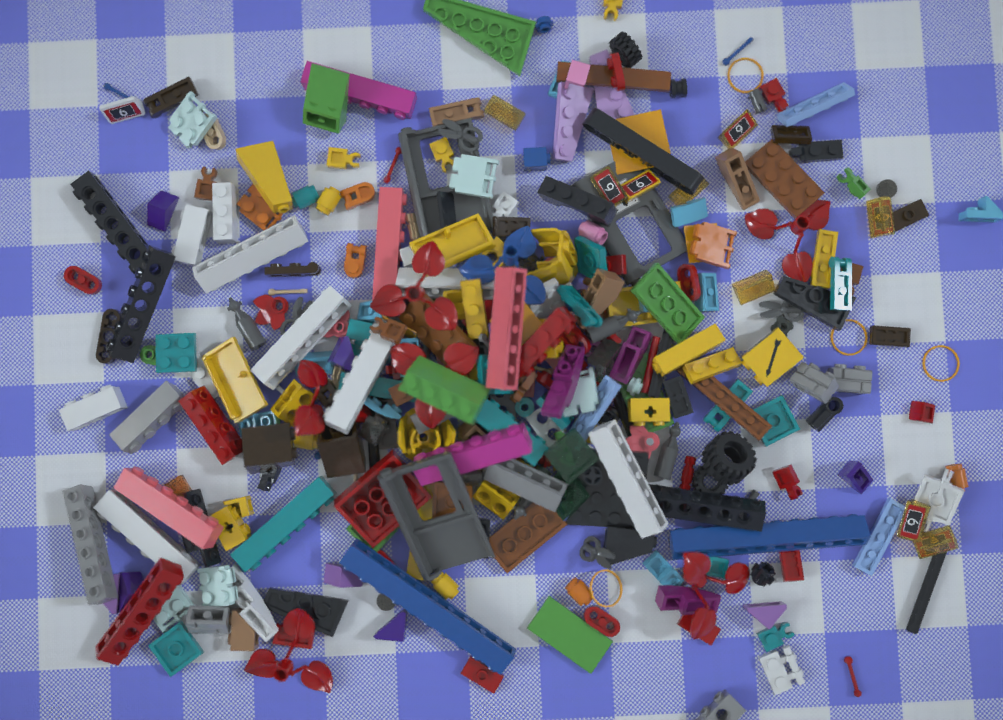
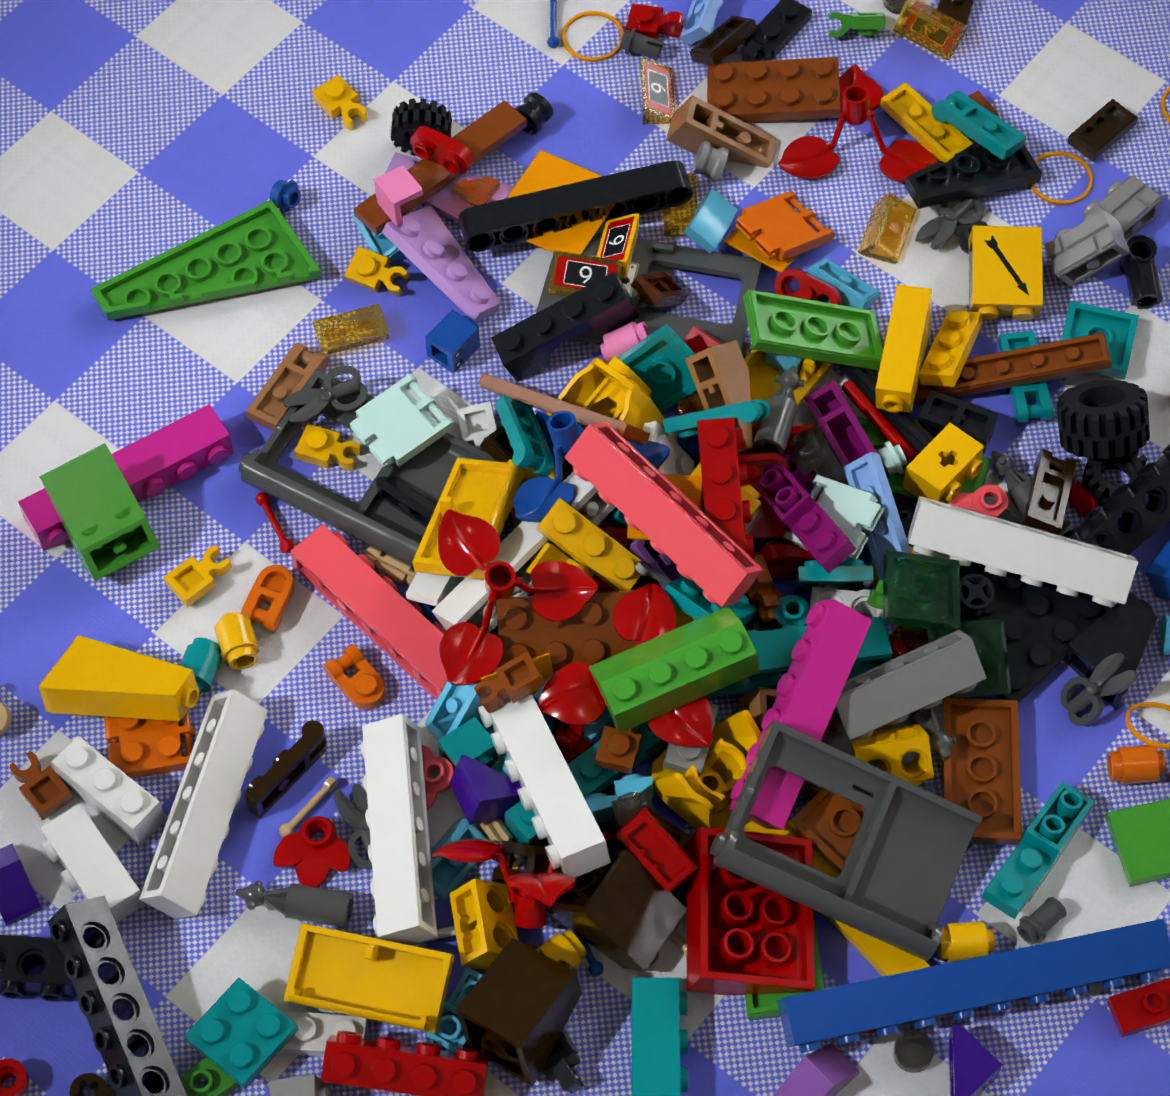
camera: 50 degrees left, 25 degrees down
(368, 447) = (656, 850): none -> red plate
(480, 606) = (1033, 928): none -> dark grey pin
(507, 583) = (1038, 850): none -> teal slope
(508, 231) = (525, 436): none -> teal plate
(532, 239) = (553, 405): none -> tile
(540, 94) = (372, 270): none -> yellow plate
(615, 102) = (477, 190): none -> clear orange tile
(632, 222) = (658, 290): none -> reddish brown plate
(671, 464) = (1049, 492): none -> dark brown plate
(720, 184) = (710, 160): none -> light grey wheel

